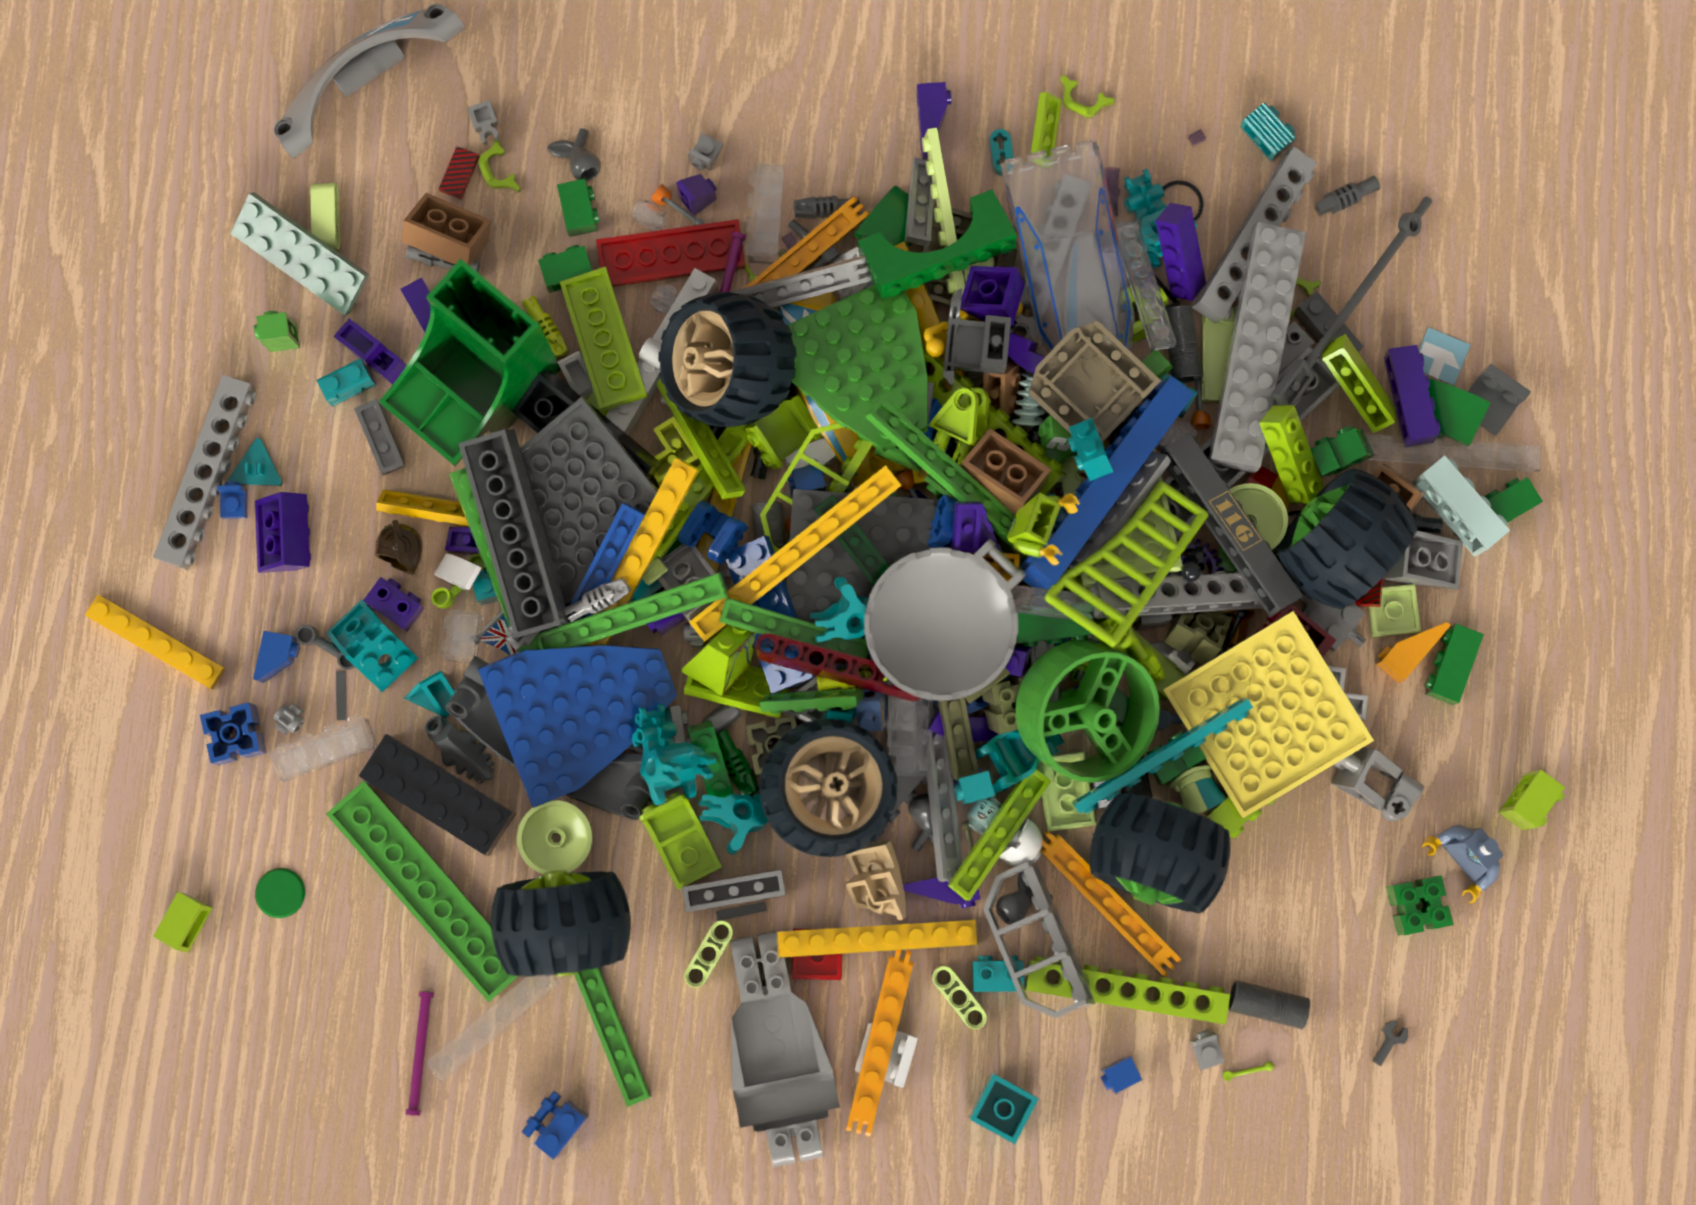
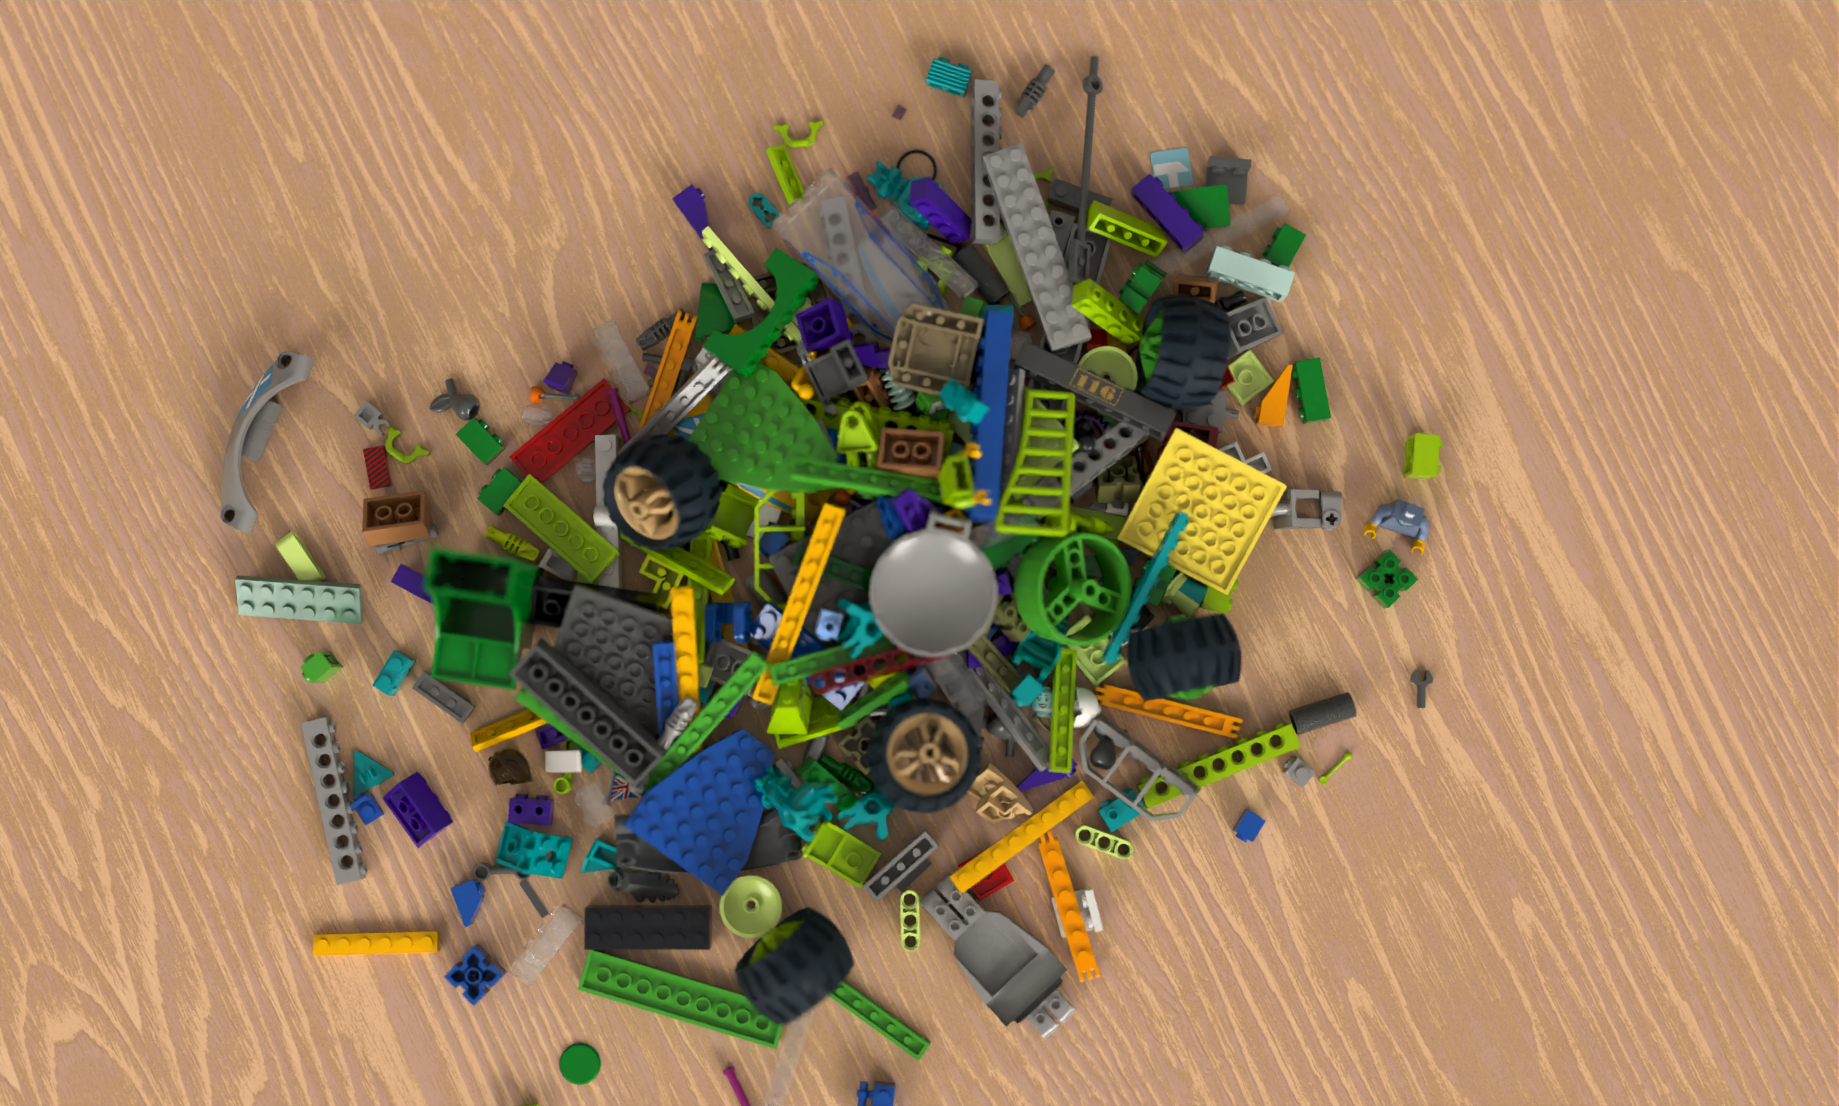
camera: 30 degrees left, 5 degrees up
(289, 719) = (508, 939): light grey gear -> none
(370, 351) = (397, 638): dark purple slope -> none
(705, 152) = (548, 342): light grey bracket -> none
(812, 594) = (828, 624): none -> light blue brick
(1003, 1108) = (1180, 900): teal brick -> none

